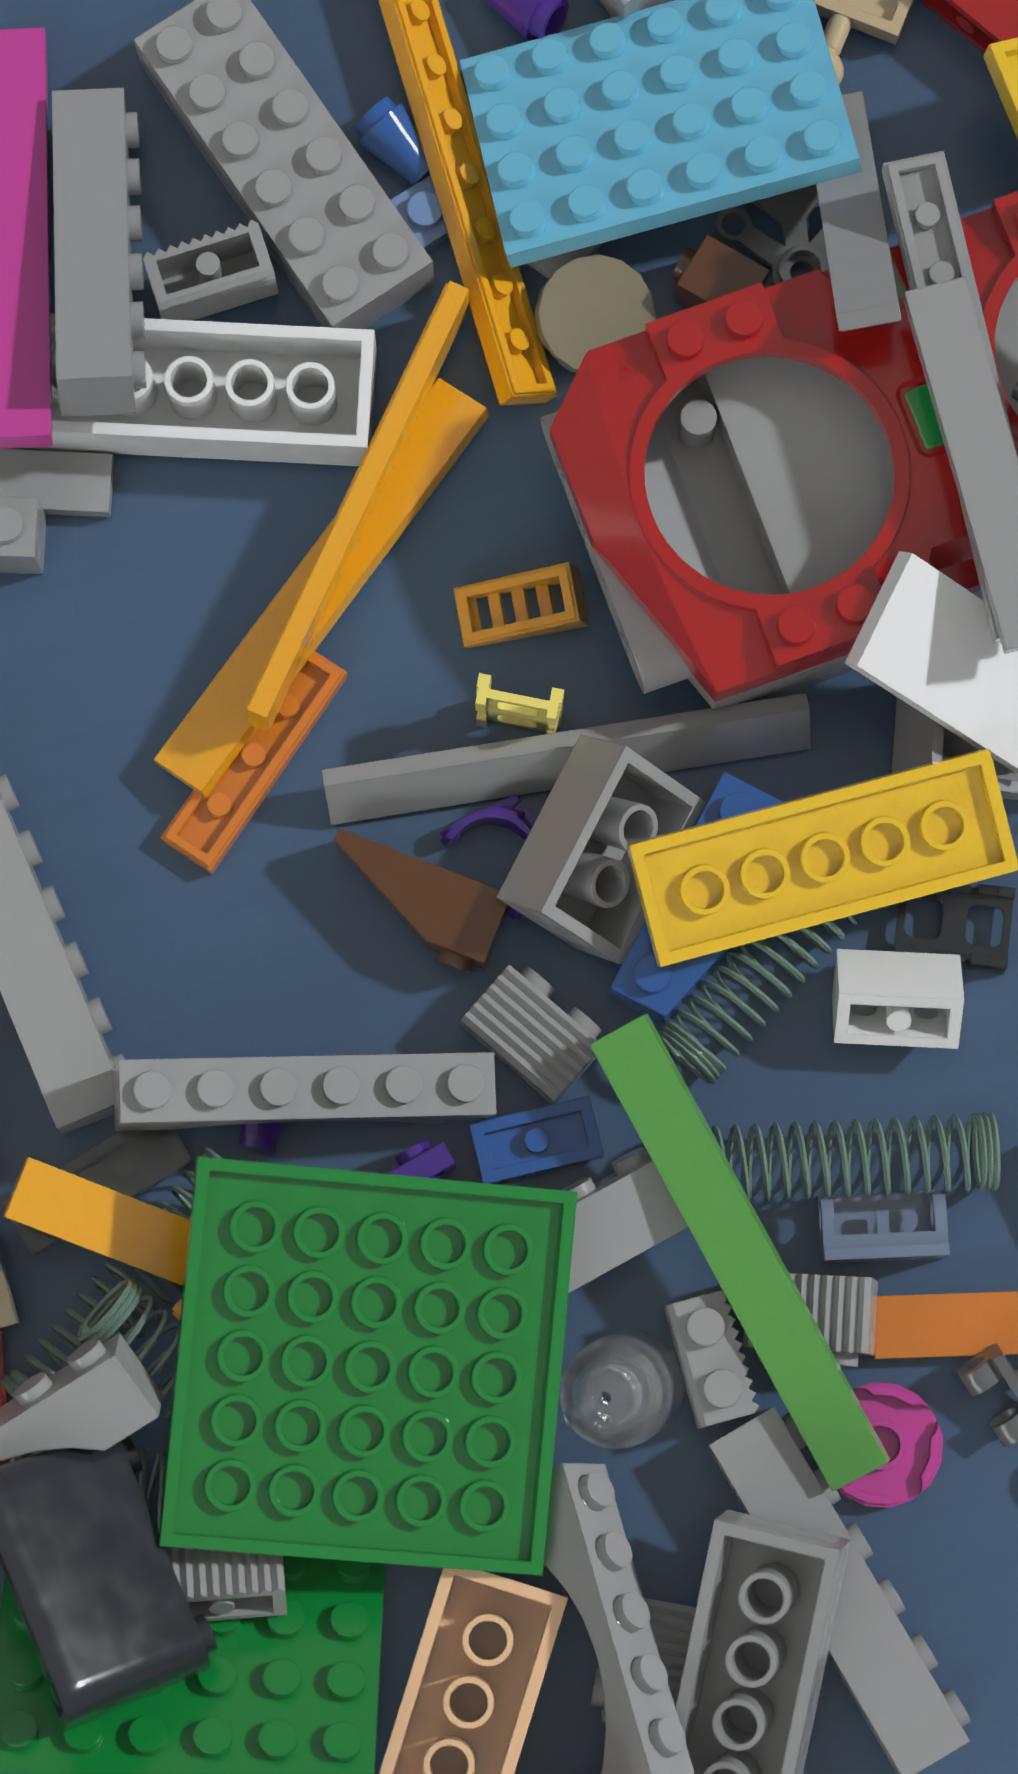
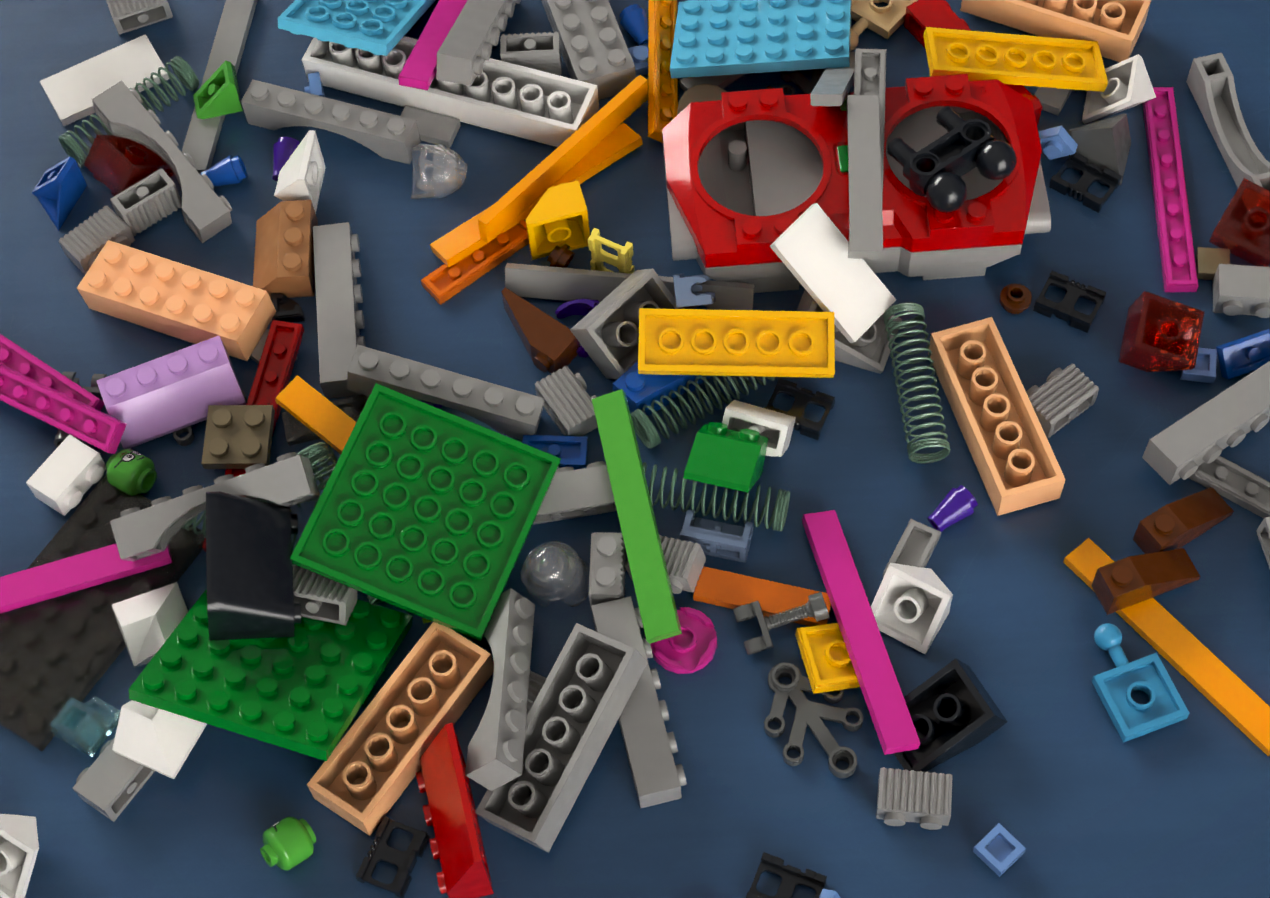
camera: 20 degrees right, 20 degrees down
(113, 599) = (436, 171): none -> clear helmet
(397, 650) = (558, 220): none -> yellow slope
(414, 722) = (561, 256): none -> reddish brown plate
(540, 579) = (640, 233): light orange slope -> none
(712, 771) = (687, 291): none -> sand blue hinge
(868, 1092) = (726, 457): none -> green slope

